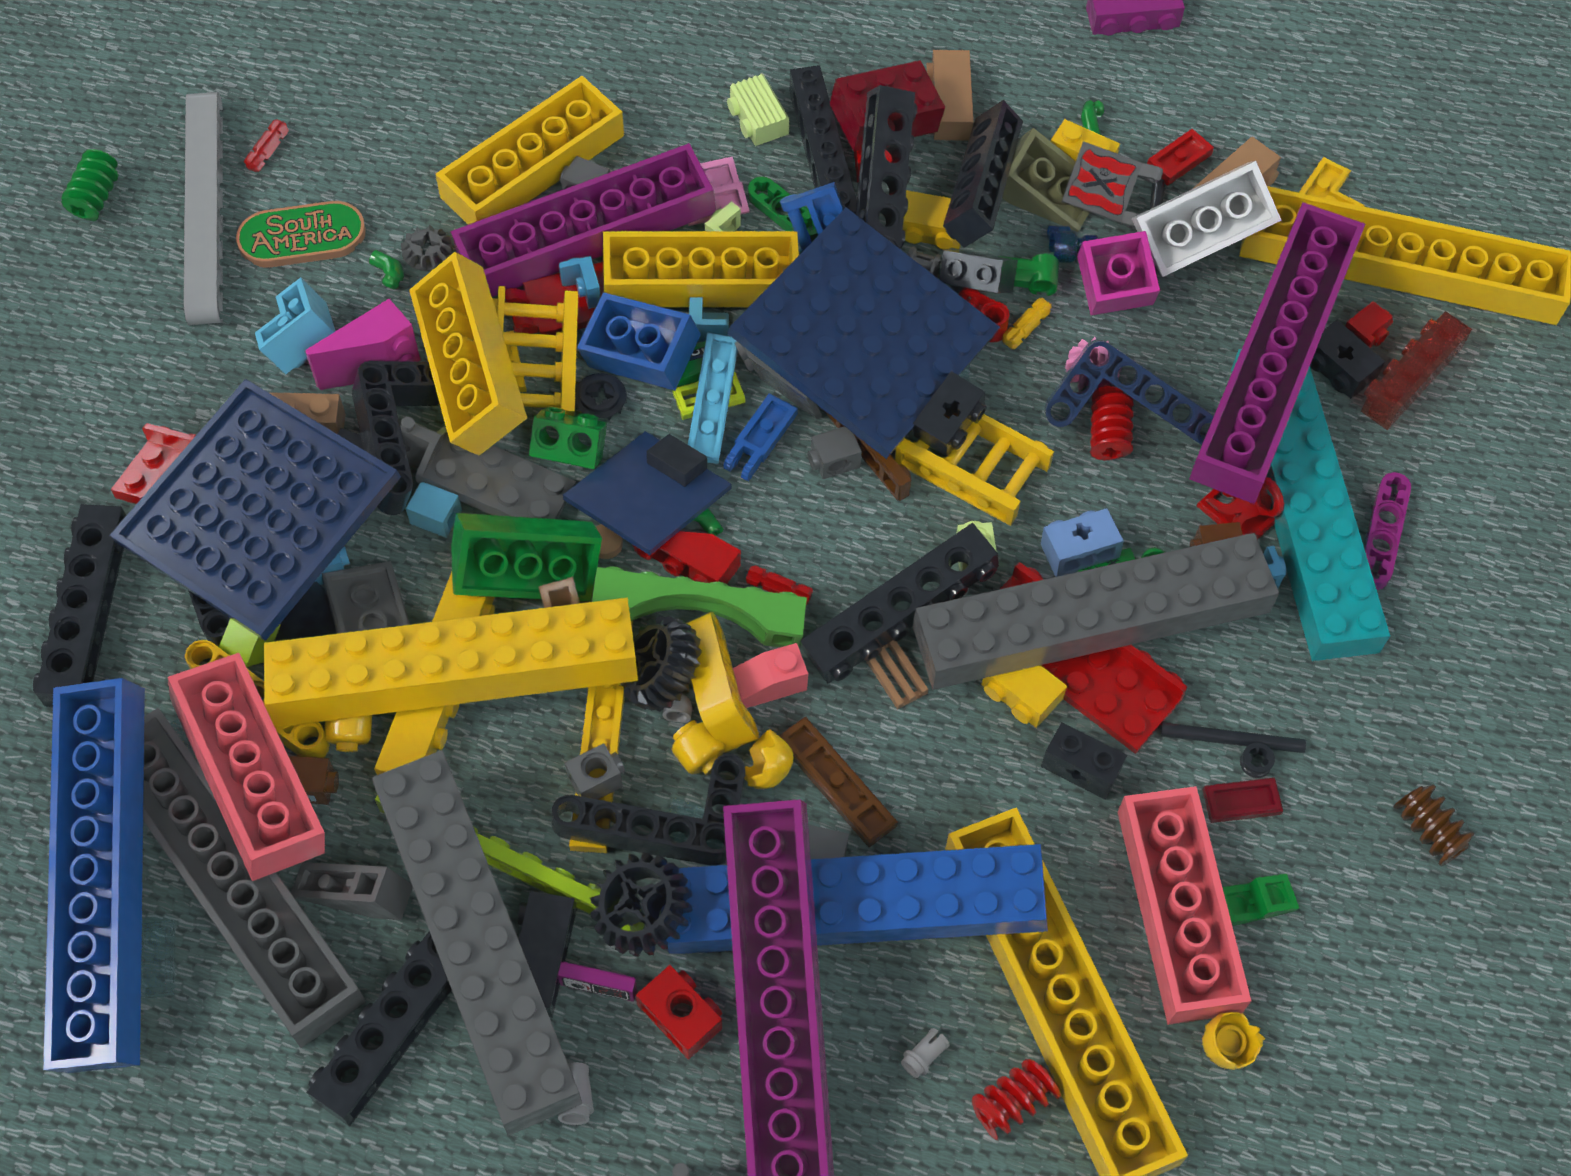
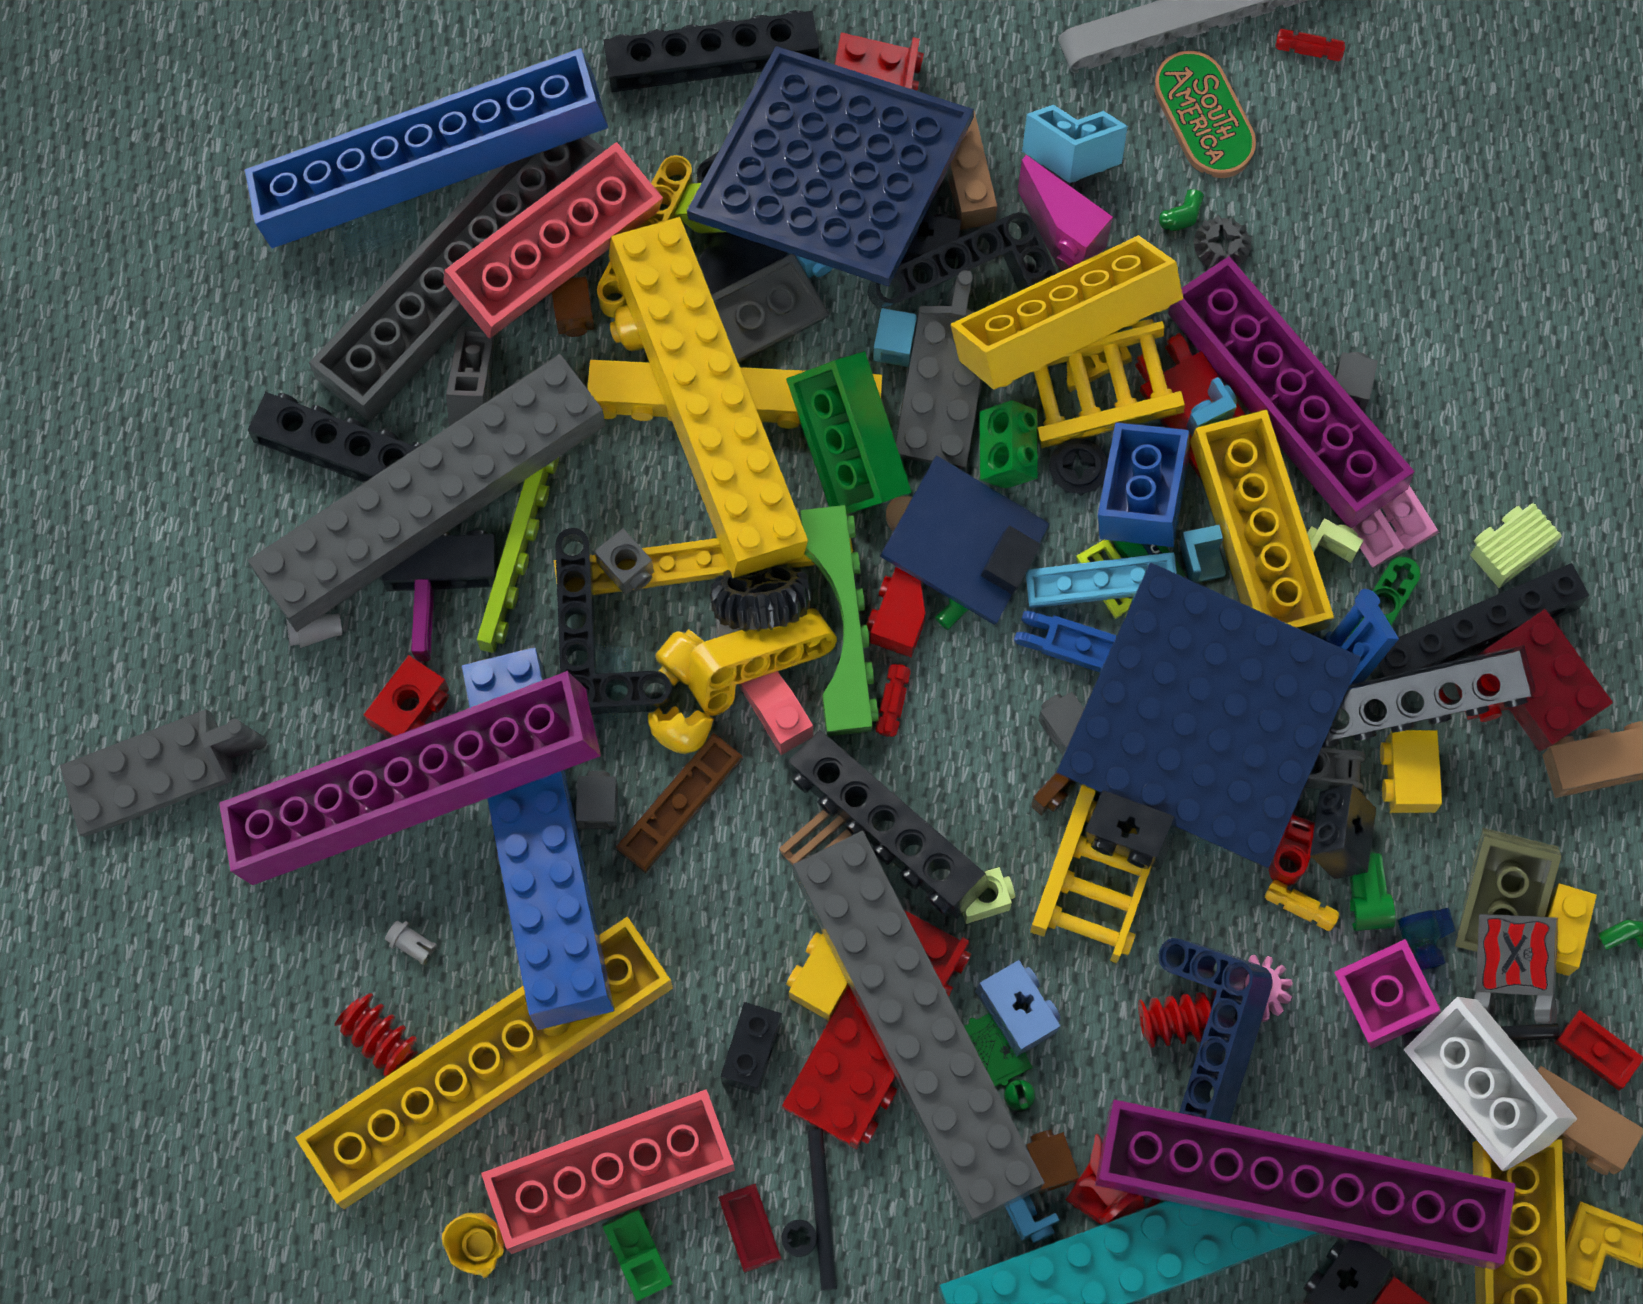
camera: 80 degrees right, 10 degrees up
(531, 152) = (1370, 313): yellow brick -> none
(559, 593) = (817, 485): medium nougat slope -> none
(614, 915) = (486, 623): black gear -> none
(983, 174) = (1476, 810): black brick -> none

